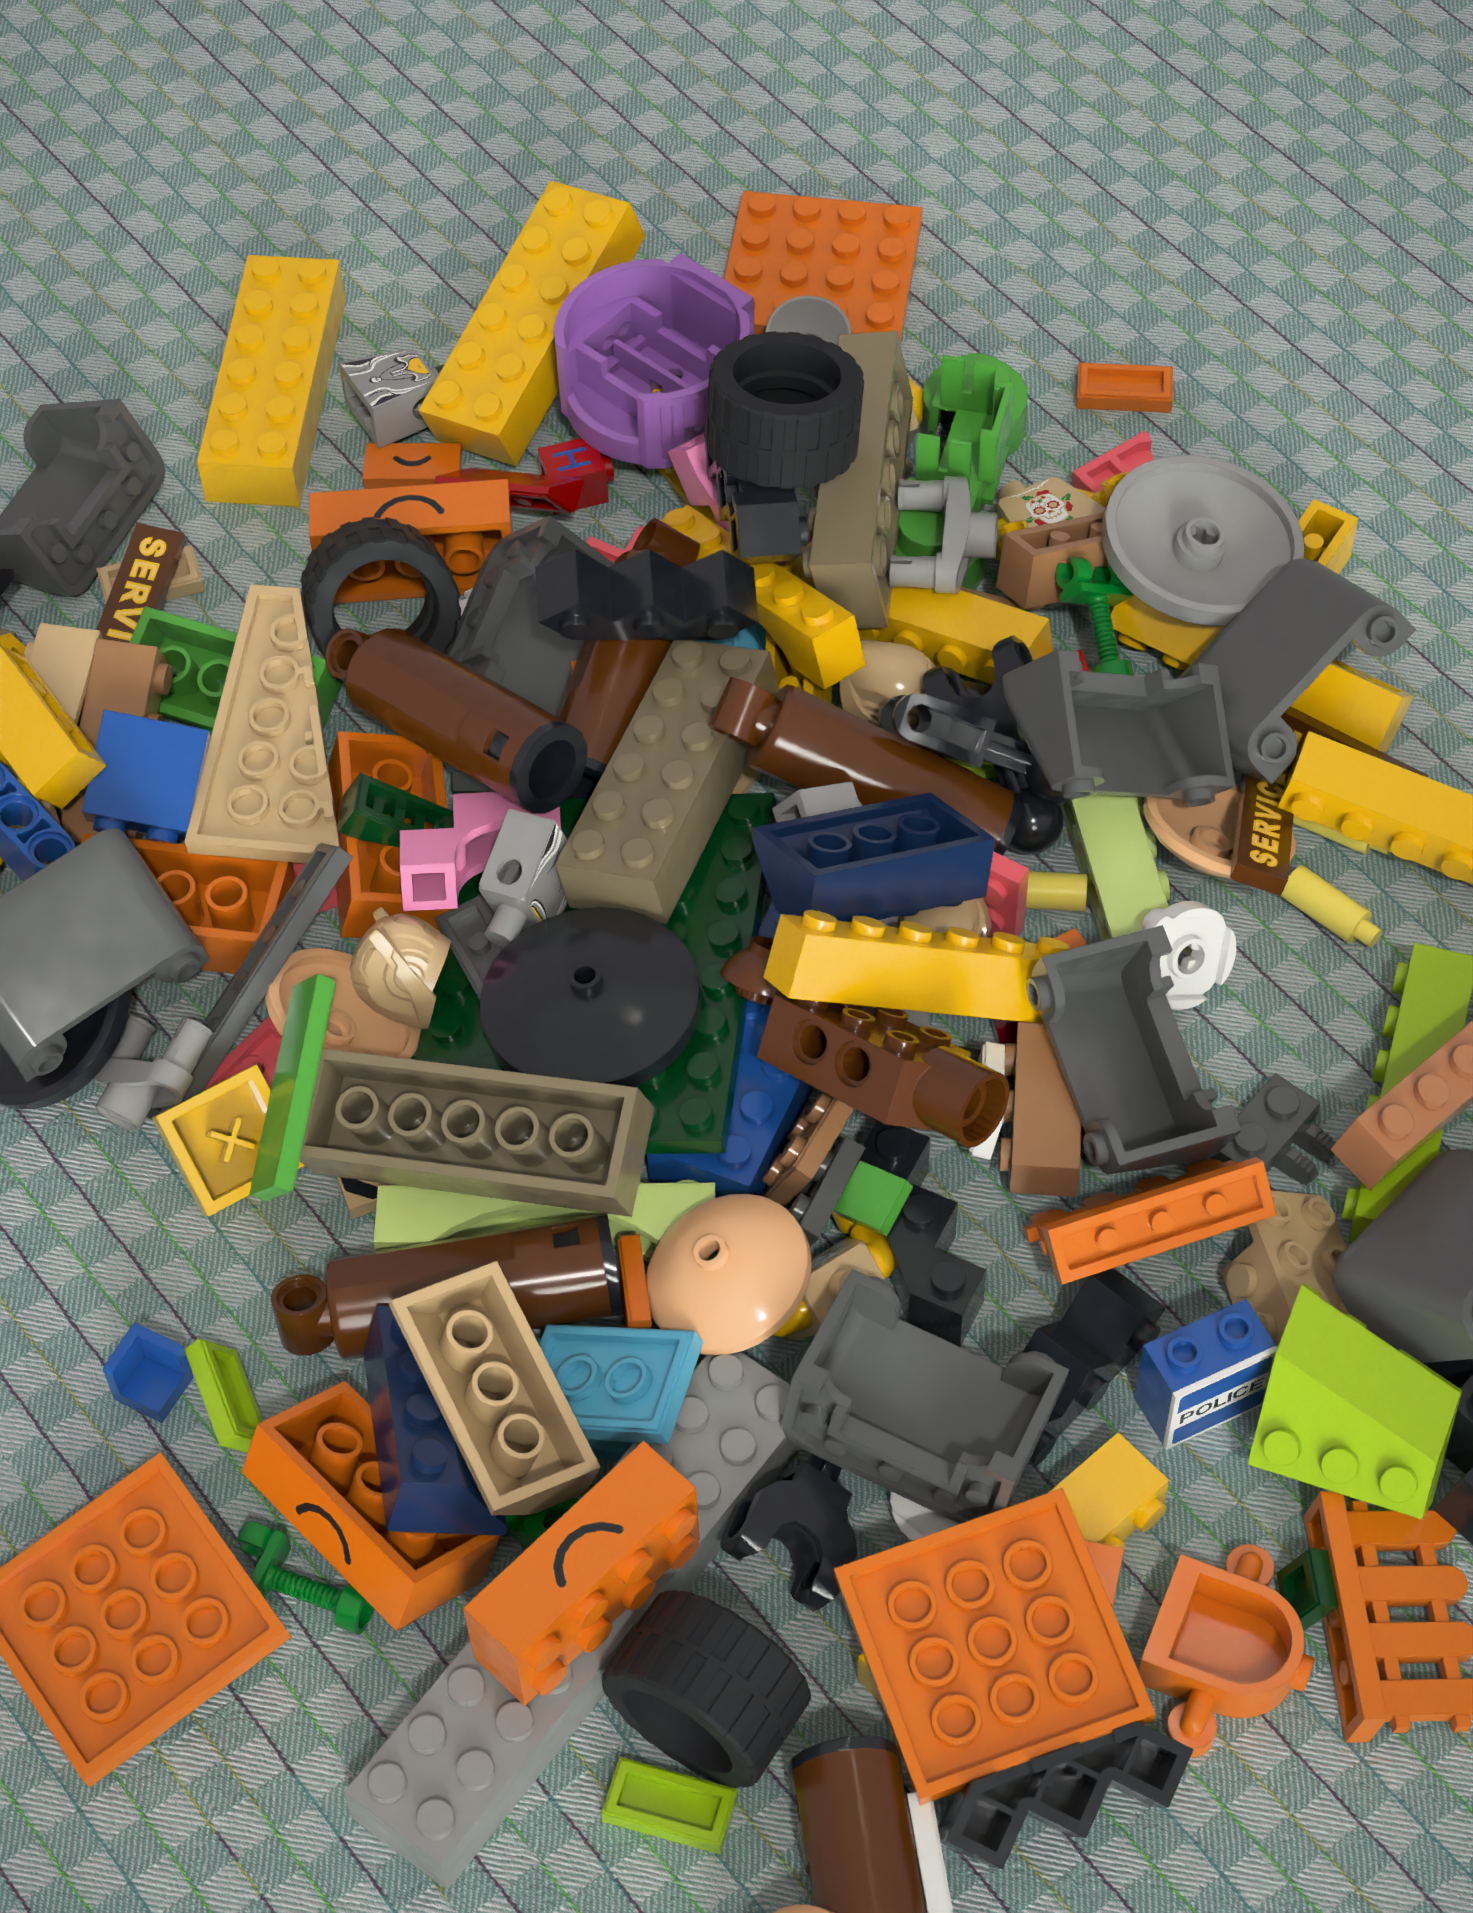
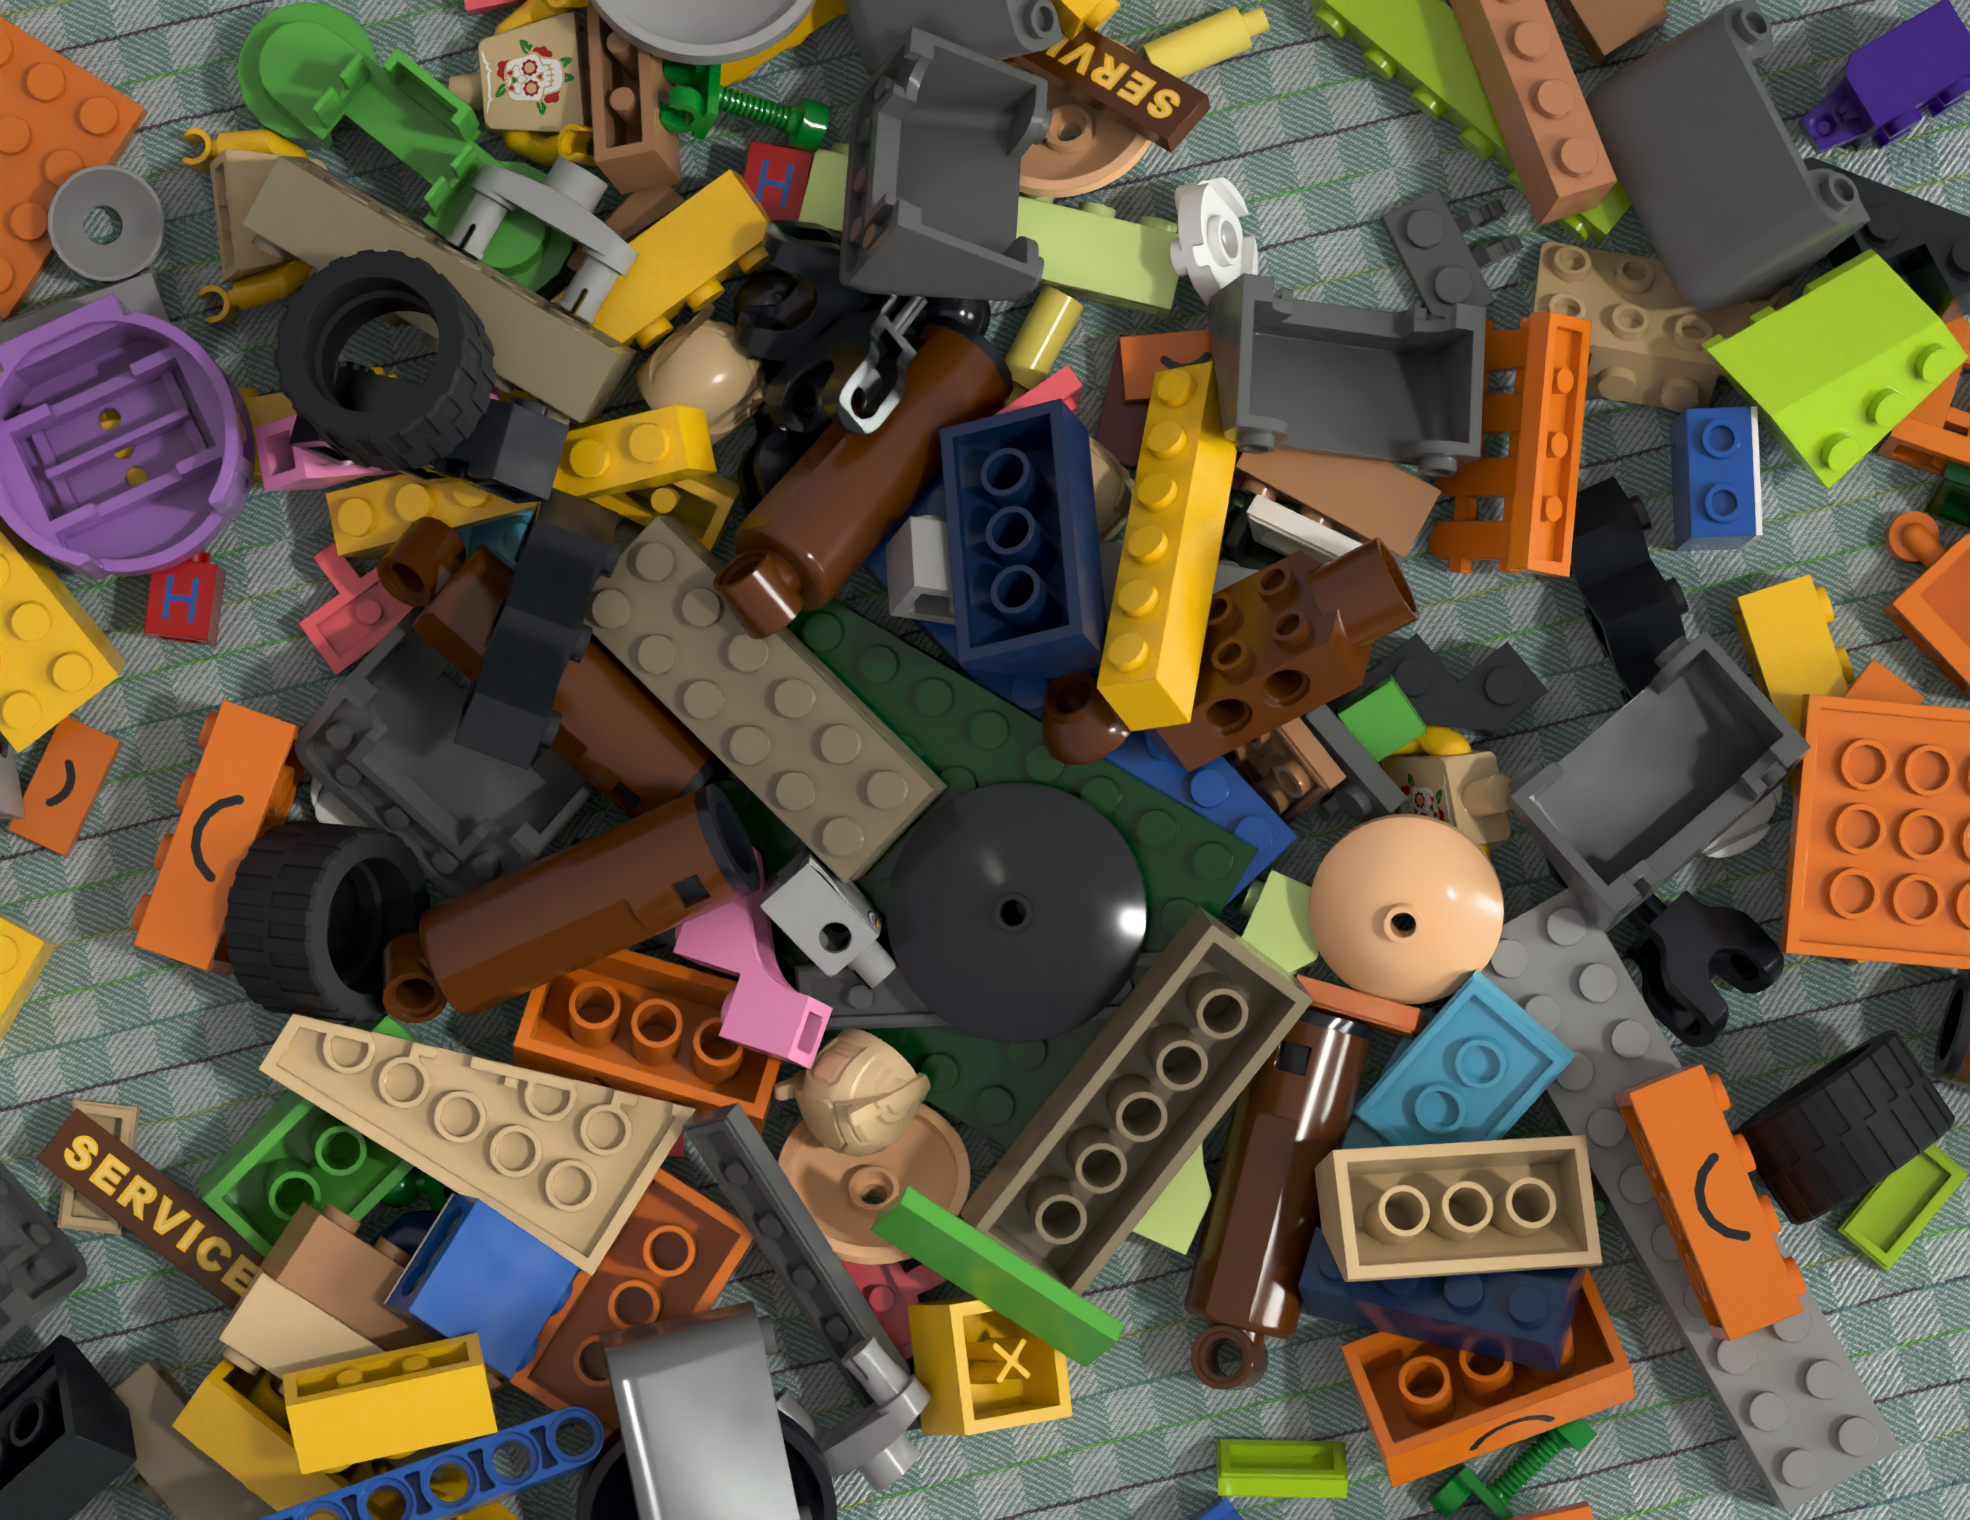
camera: 70 degrees left, 30 degrees up
(370, 798) = (653, 1063): dark green slope -> none
(527, 489) = (189, 687): red slope -> none

